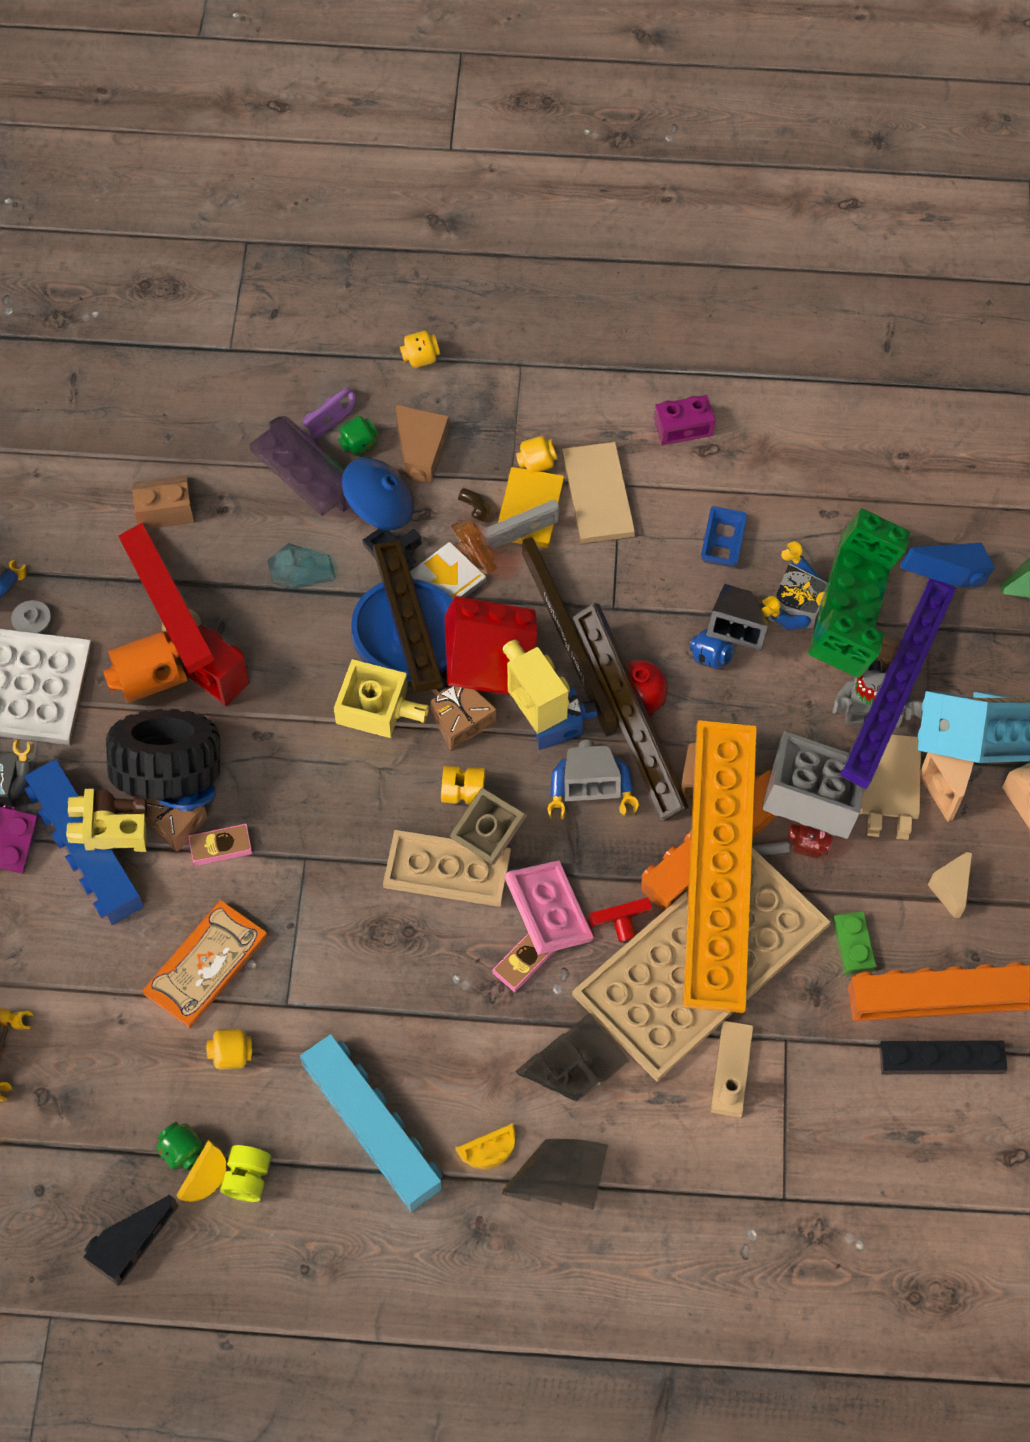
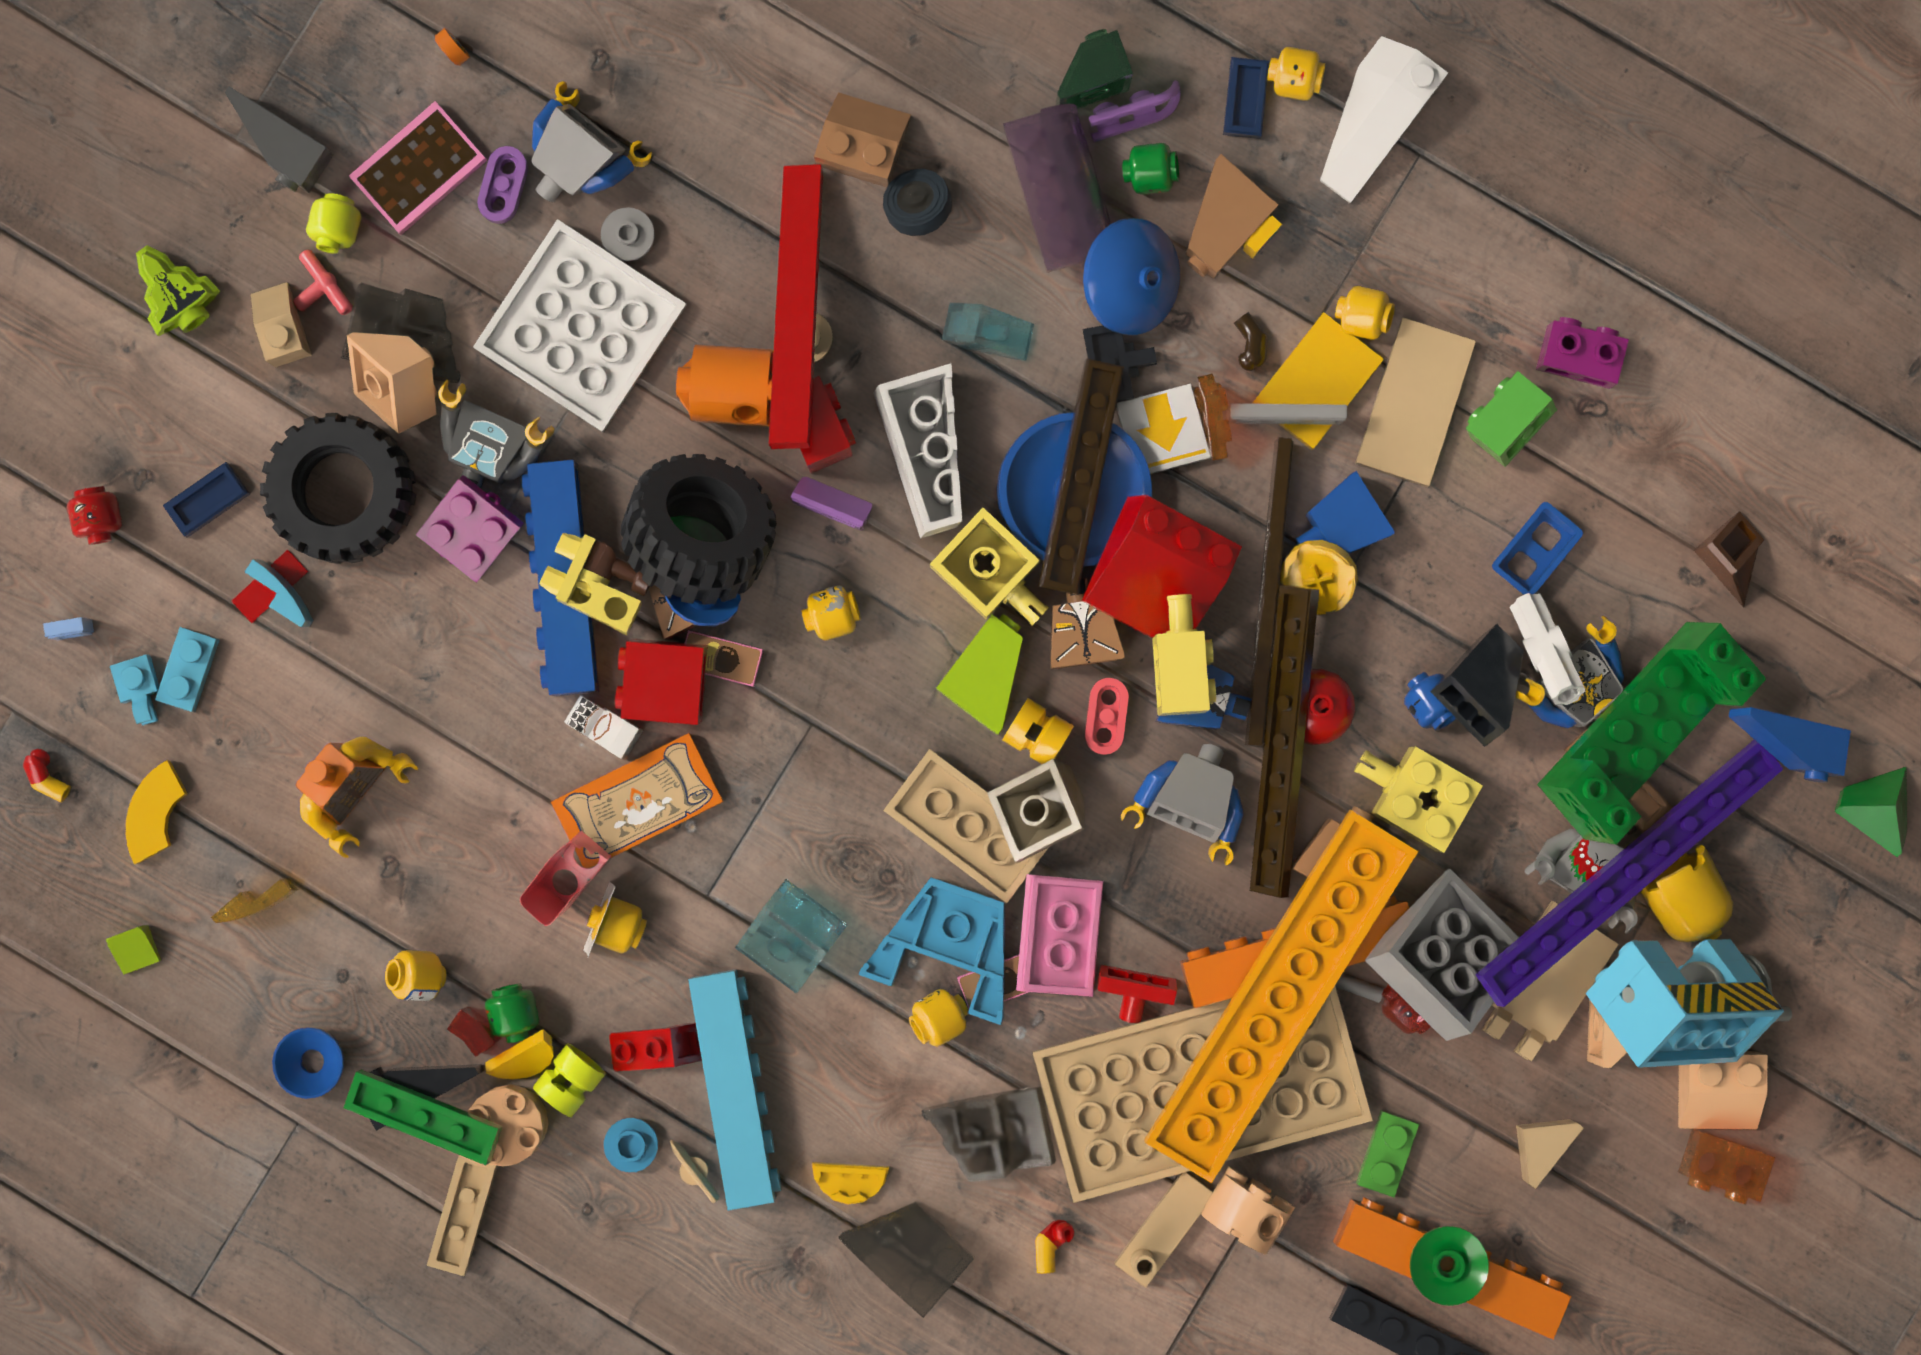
camera: 25 degrees right, 25 degrees up
(31, 1245) = (291, 1072): none -> blue piece
(94, 1154) = (415, 975): none -> yellow head
(145, 1242) = (423, 1117): none -> green plate
(157, 1173) = (473, 1030): none -> clear red piece
(158, 923) = (603, 727): none -> white leg
(161, 1031) = (542, 898): none -> coral piece
(185, 871) = (662, 681): none -> red piece
(209, 1316) = (461, 1216): none -> tan plate
(213, 1229) = (522, 1120): none -> light nougat brick
(215, 1069) = (608, 894): none -> white sticker
(216, 516) = (917, 202): none -> black wheel
(249, 717) = (831, 503): none -> medium lavender slope
(282, 776) = (831, 612): none -> yellow head
(293, 648) = (924, 444): none -> white wedge
(295, 391) = (1096, 71): none -> clear green slope
(297, 1119) = (655, 1048): none -> red bracket
(314, 1202) = (630, 1145): none -> dark azure piece
(359, 998) = (791, 936): none -> clear light blue slope
(371, 1197) = (694, 1171): none -> tan piece
(396, 378) = (1246, 97): none -> dark blue tile
(407, 768) = (985, 673): none -> lime slope
(448, 442) = (1261, 236): none -> yellow tile
(474, 937) = (955, 929): none -> dark azure wing
(482, 349) = (1381, 105): none -> white wedge
(493, 1000) = (938, 1017): none -> yellow head
(504, 759) = (1106, 716): none -> coral plate
(594, 572) = (1348, 517): none -> blue torso
(601, 594) = (1322, 567): none -> yellow tile
(656, 1117) = (1049, 1241): none -> arm
(662, 469) = (1510, 418): none -> bright green brick
(739, 700) = (1400, 800): none -> light yellow brick
(765, 580) = (1547, 649): none -> white piece
(781, 1018) = (1247, 1211): none -> light nougat brick
(844, 488) = (1732, 554): none -> reddish brown slope
(944, 967) = (1463, 1279): none -> green dish
(945, 674) = (1690, 898): none -> yellow cylinder

